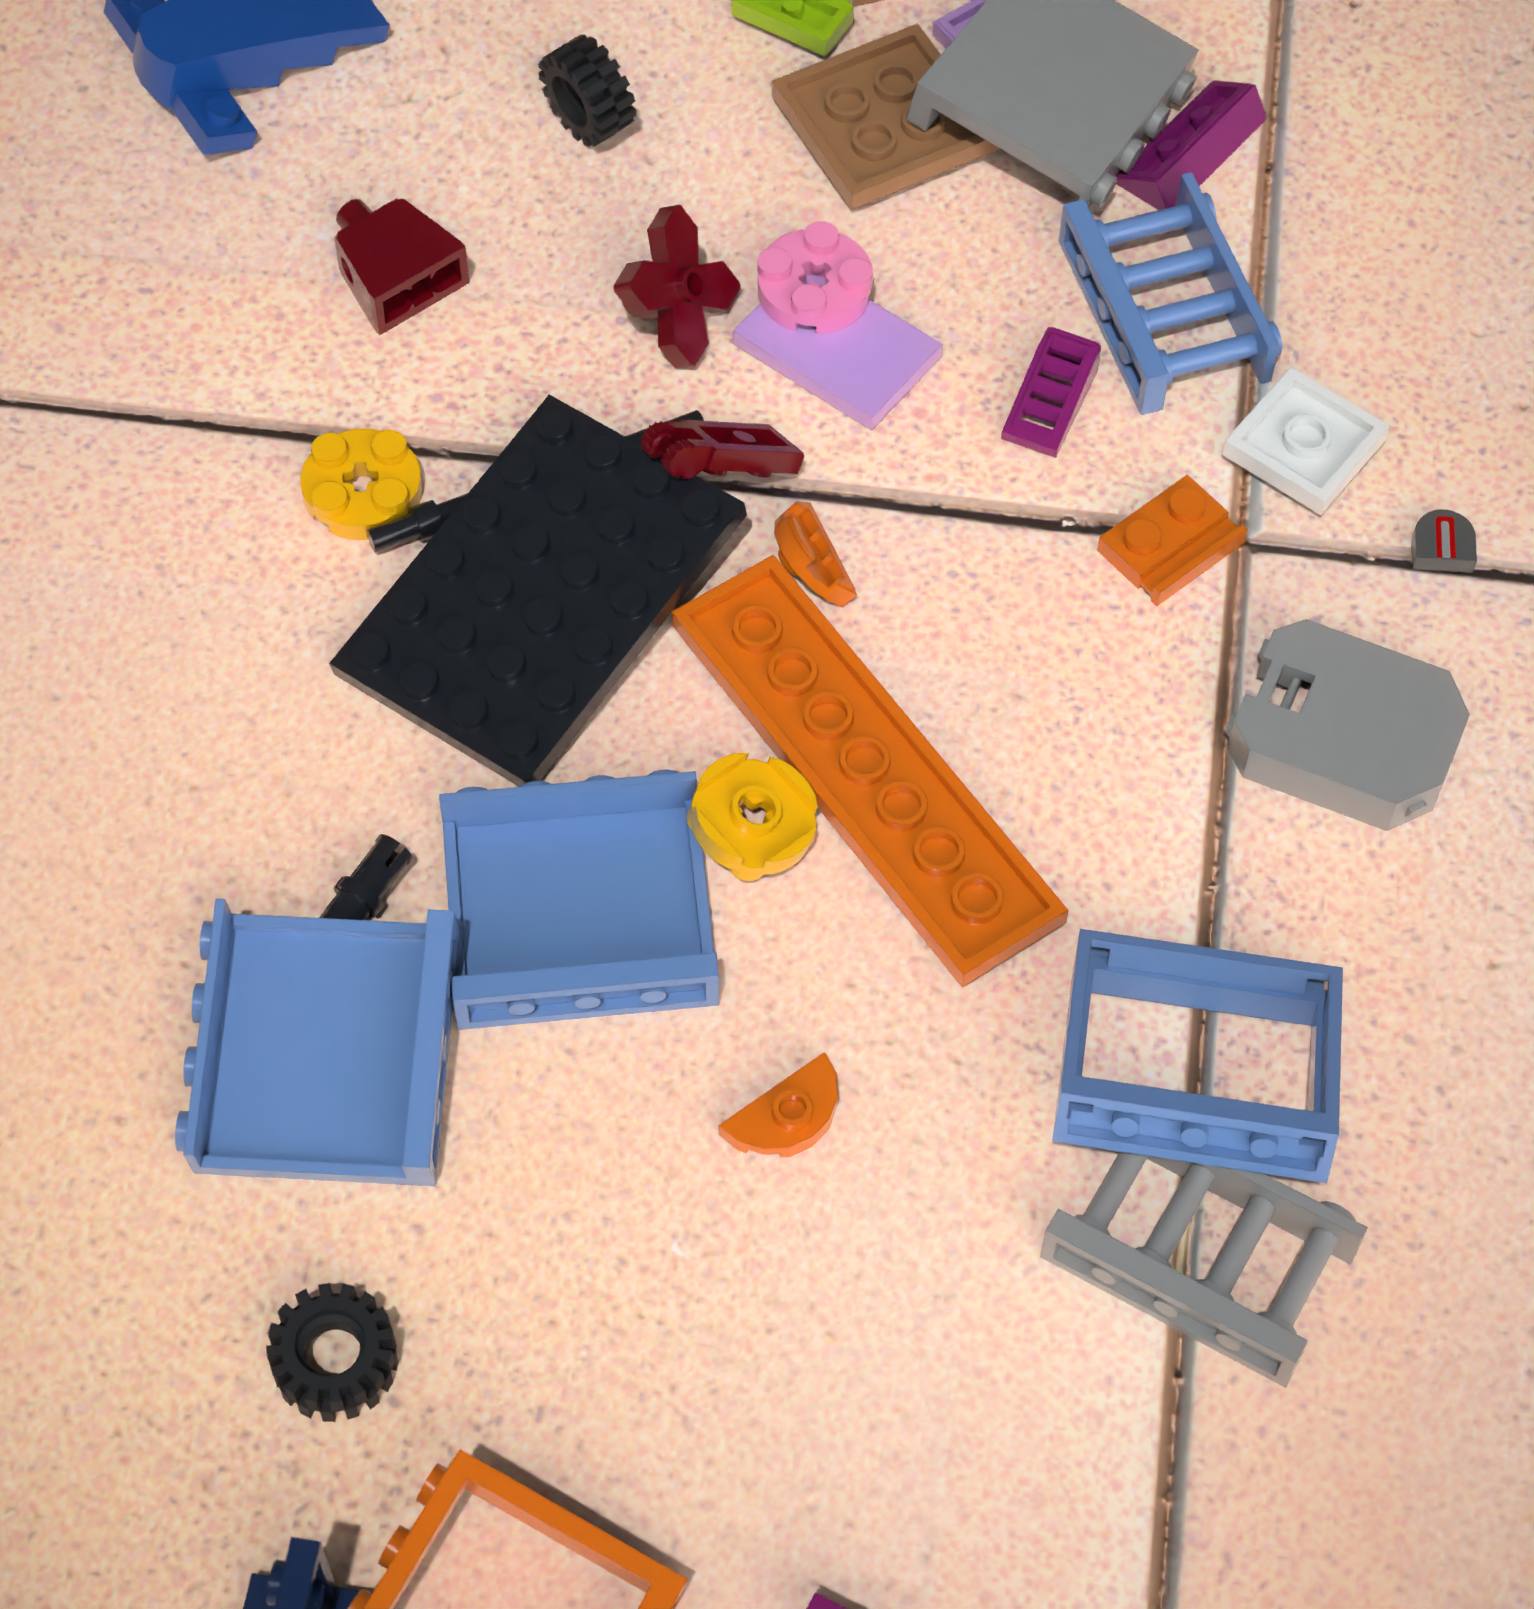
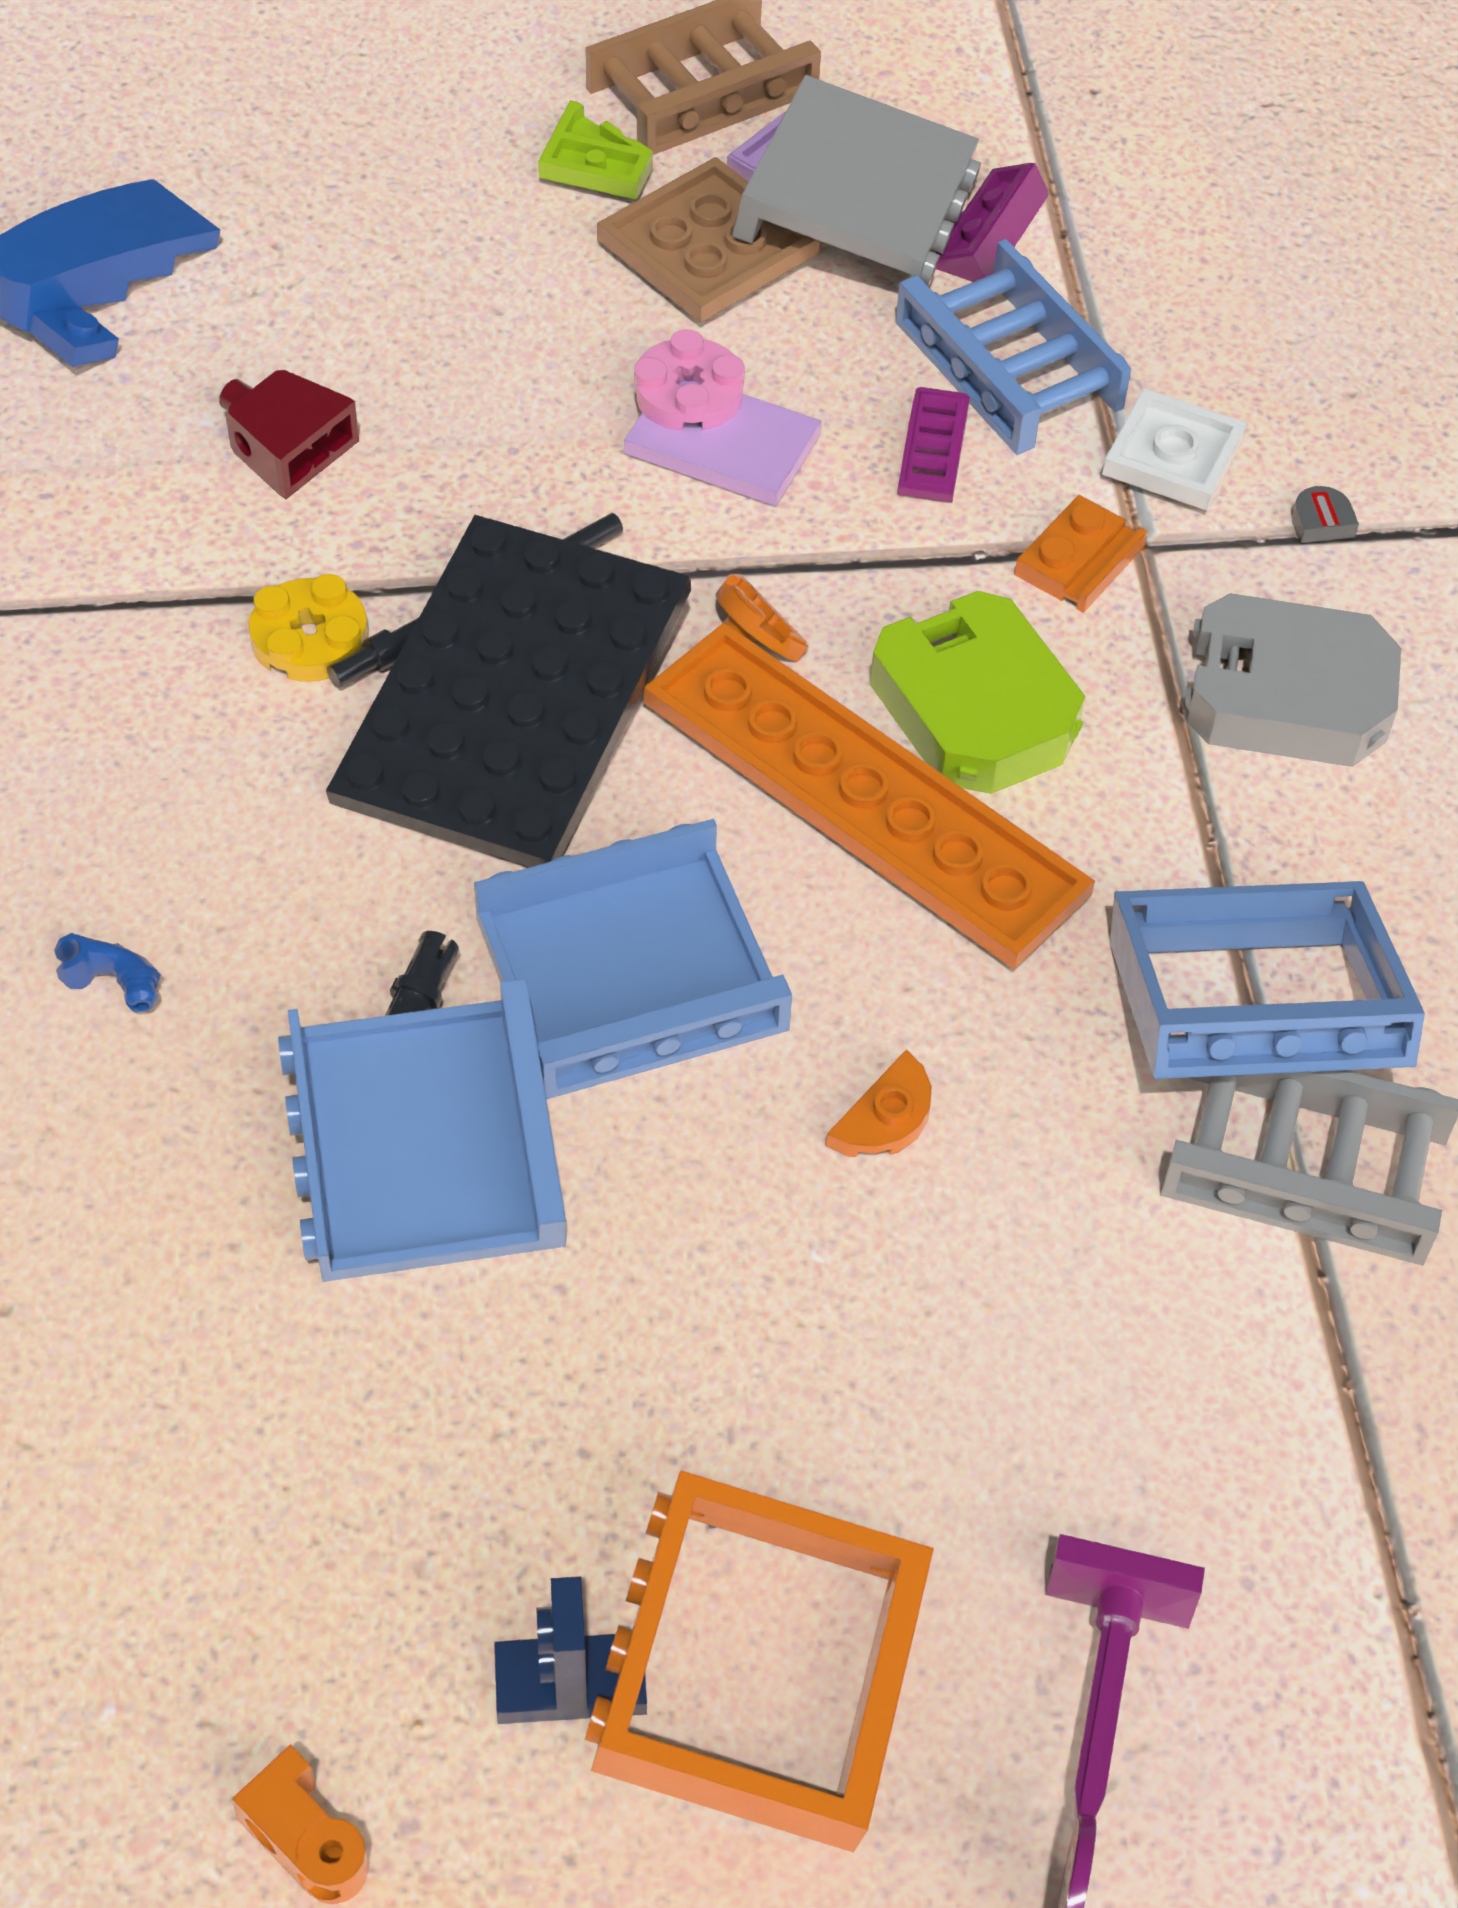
camera: 15 degrees left, 5 degrees down
(59, 796) = (86, 958): none -> blue piece
(343, 1390) = (505, 1380): black tyre -> none
(587, 90) = (429, 253): black tyre -> none
(676, 287) = (562, 408): dark red plant -> none
(720, 447) = (646, 536): dark red hinge -> none
(747, 846) = (769, 877): yellow plate -> none
(1017, 690) = (981, 704): none -> lime piece

